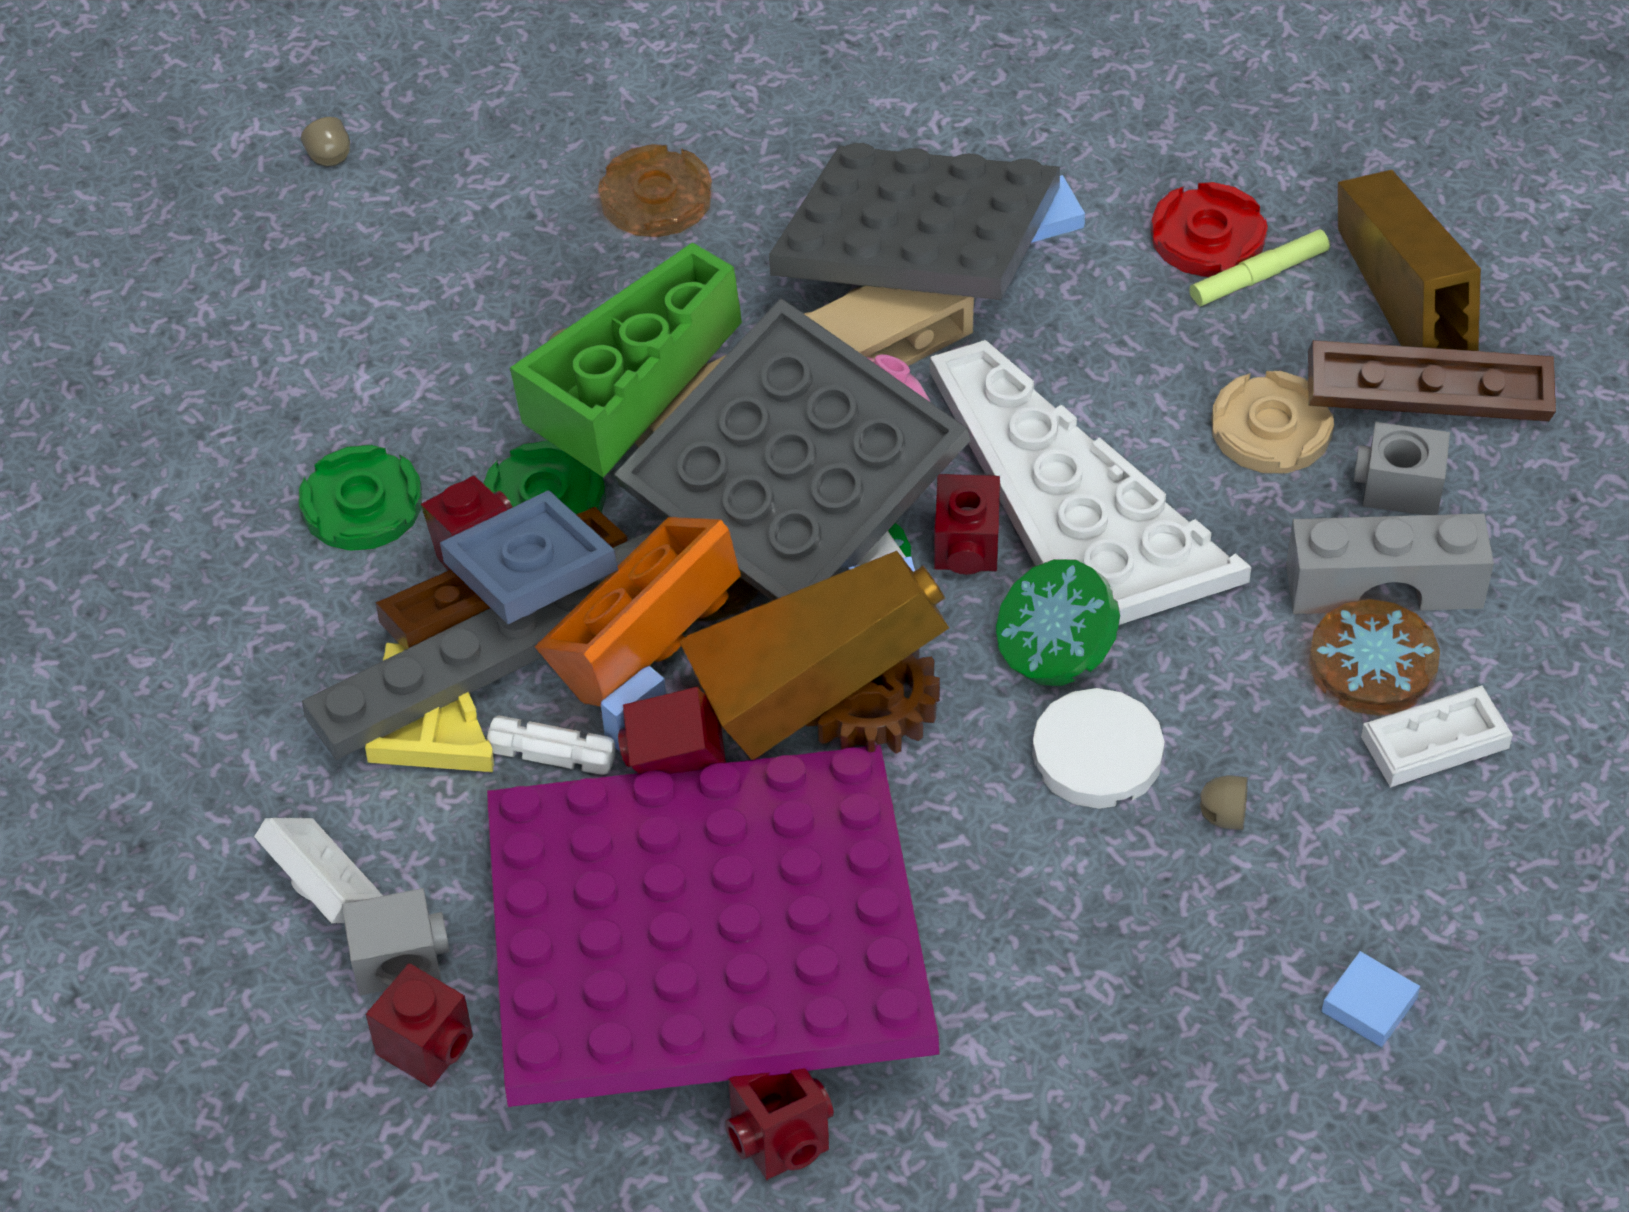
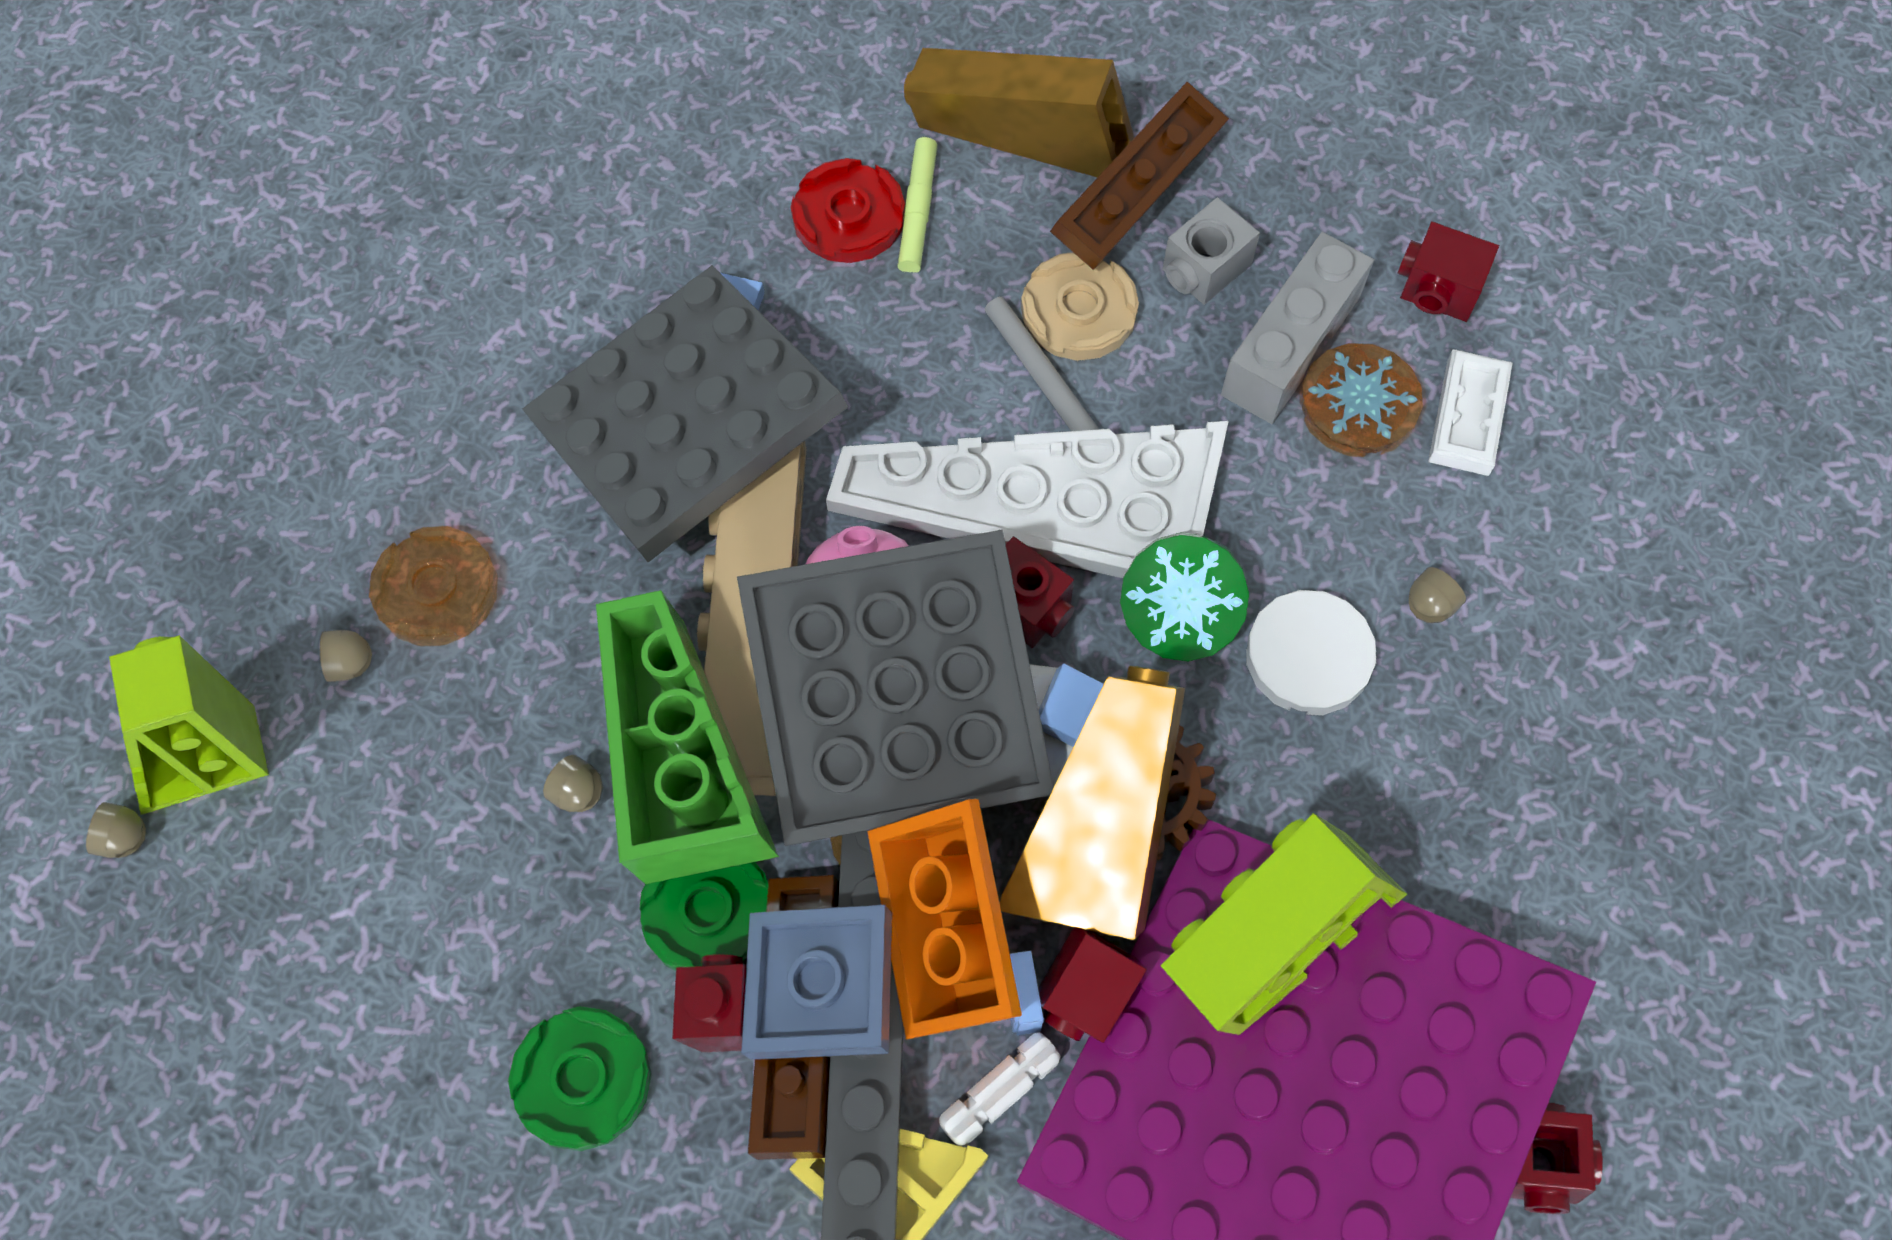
camera: 55 degrees left, 15 degrees up
(420, 107) = (183, 724): none -> lime wedge
(554, 172) = (343, 655): none -> dark tan hinge
(813, 795) = (1277, 923): none -> lime wedge
(1189, 426) = (1039, 366): none -> light grey bar
(1370, 999) = (1674, 627): light blue tile -> none
(1559, 643) = (1446, 271): none -> dark red brick

